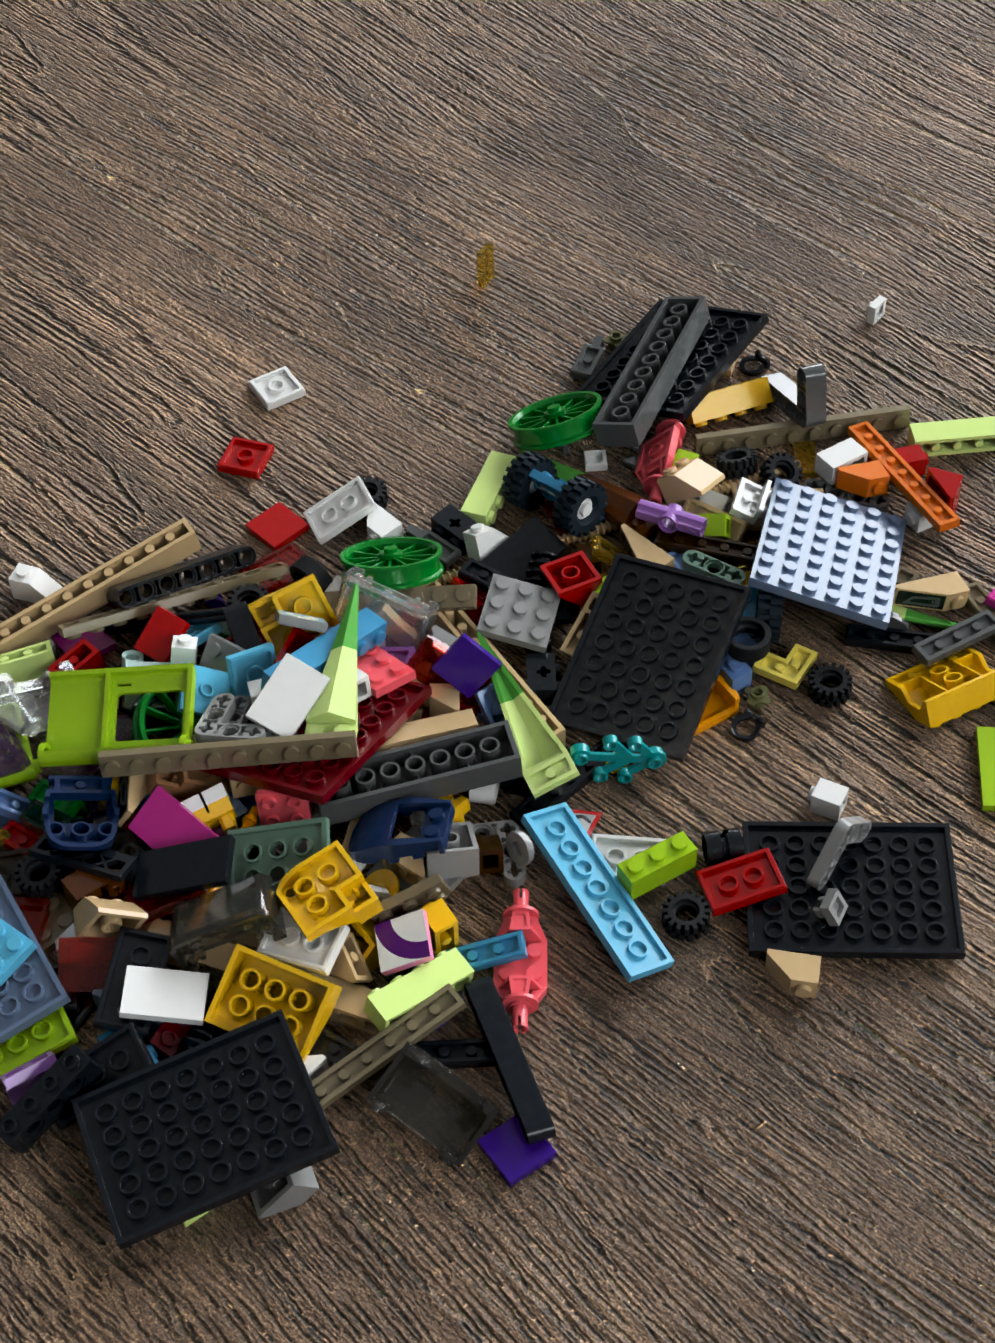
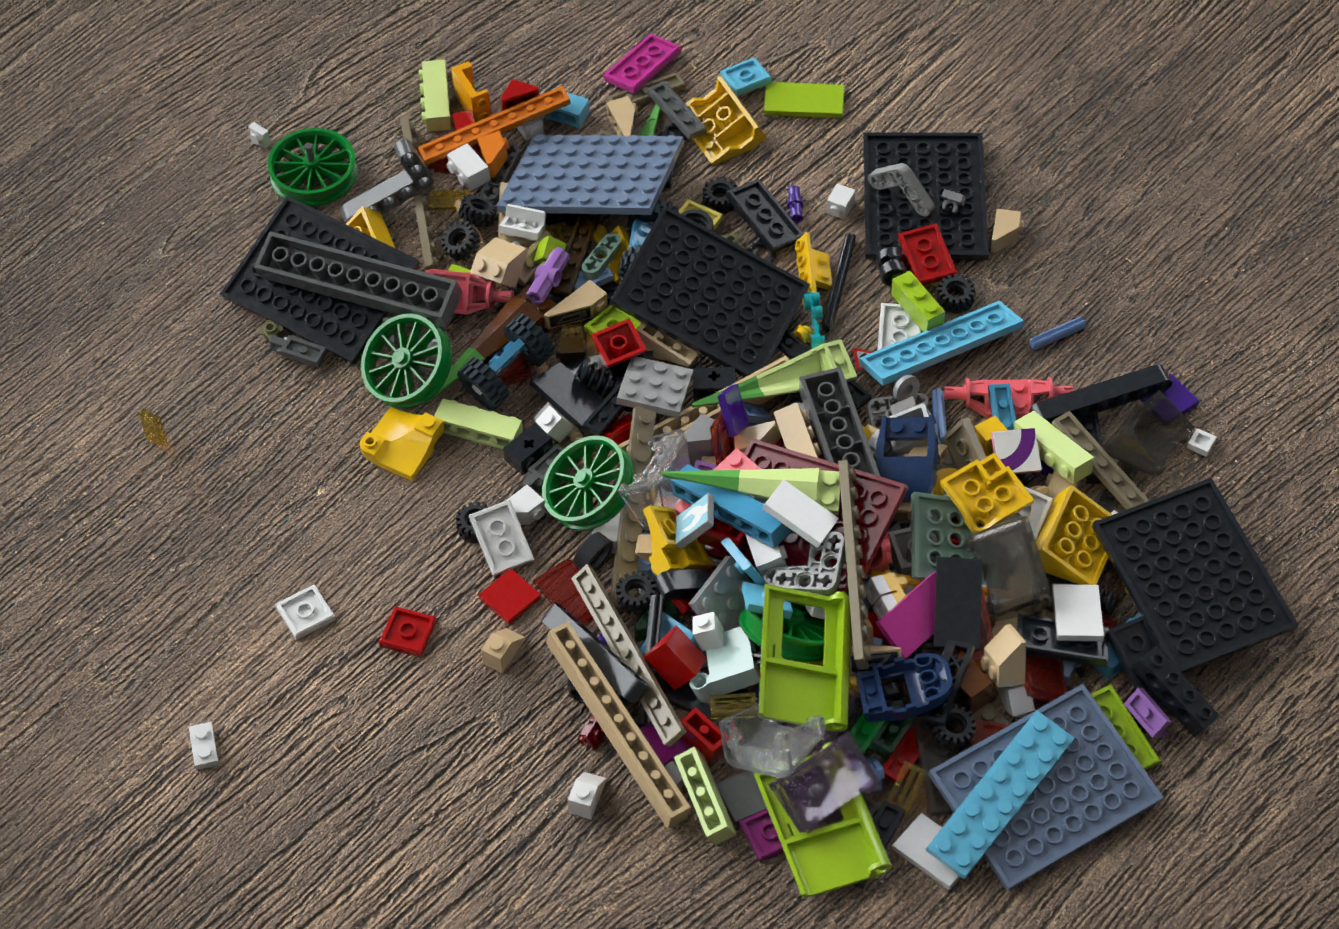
camera: 90 degrees left, 5 degrees up
(141, 335) = (203, 745): none -> white plate
(212, 519) = (501, 649): none -> tan slope
(439, 1179) = (1201, 442): none -> white plate
(470, 437) = (402, 442): none -> yellow slope
(489, 892) = (938, 410): none -> medium blue axle
(626, 1026) = (1057, 333): none -> medium blue axle
(703, 799) = (838, 282): none -> black axle
(717, 774) = (812, 265): none -> yellow bracket
(796, 723) = (764, 215): none -> black tile
(823, 756) = (795, 203): none -> dark purple pin
(834, 346) = (312, 166): none -> green wheel
(950, 547) = (573, 114): none -> medium azure brick
(956, 451) = (467, 96): none -> light orange panel

